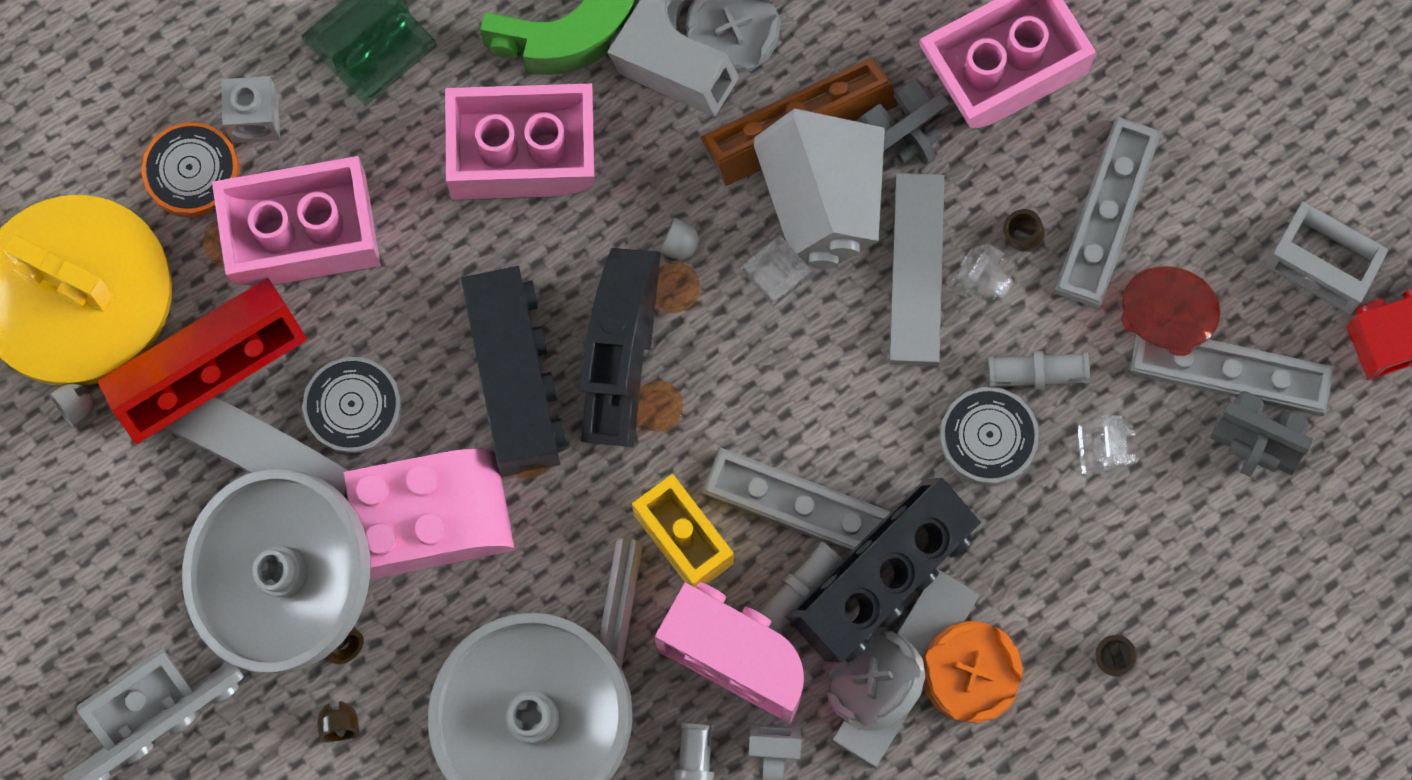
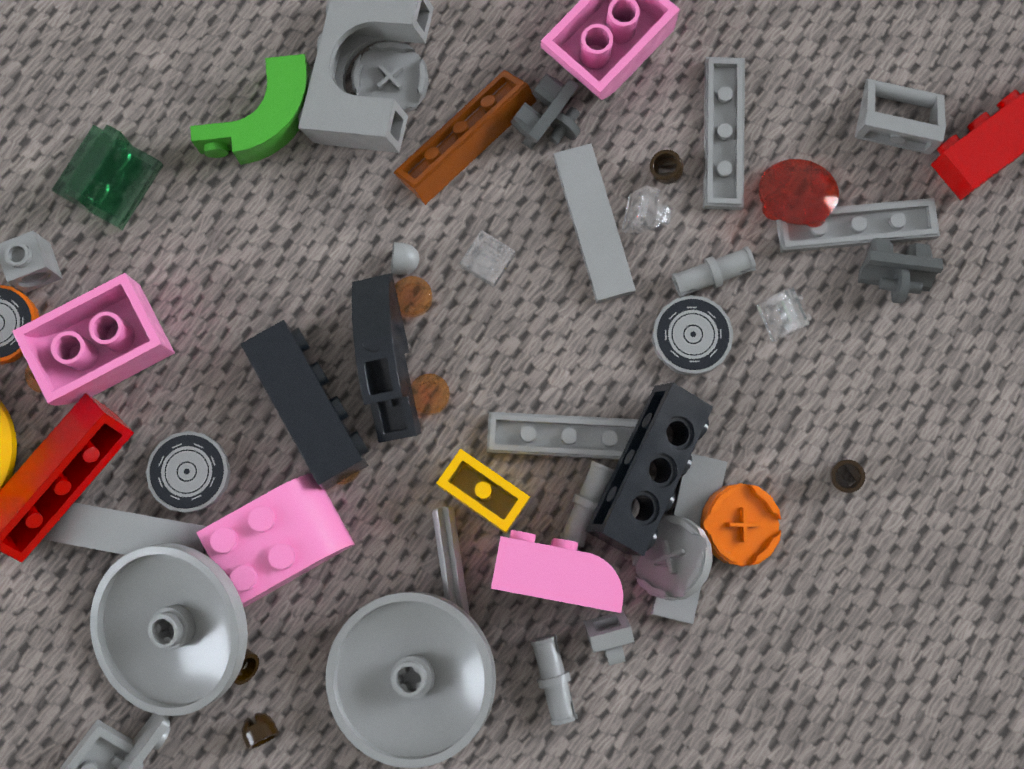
camera: 20 degrees left, 5 degrees up
(519, 141) = (250, 220): bright pink brick -> none
(824, 183) = (503, 178): light grey slope -> none

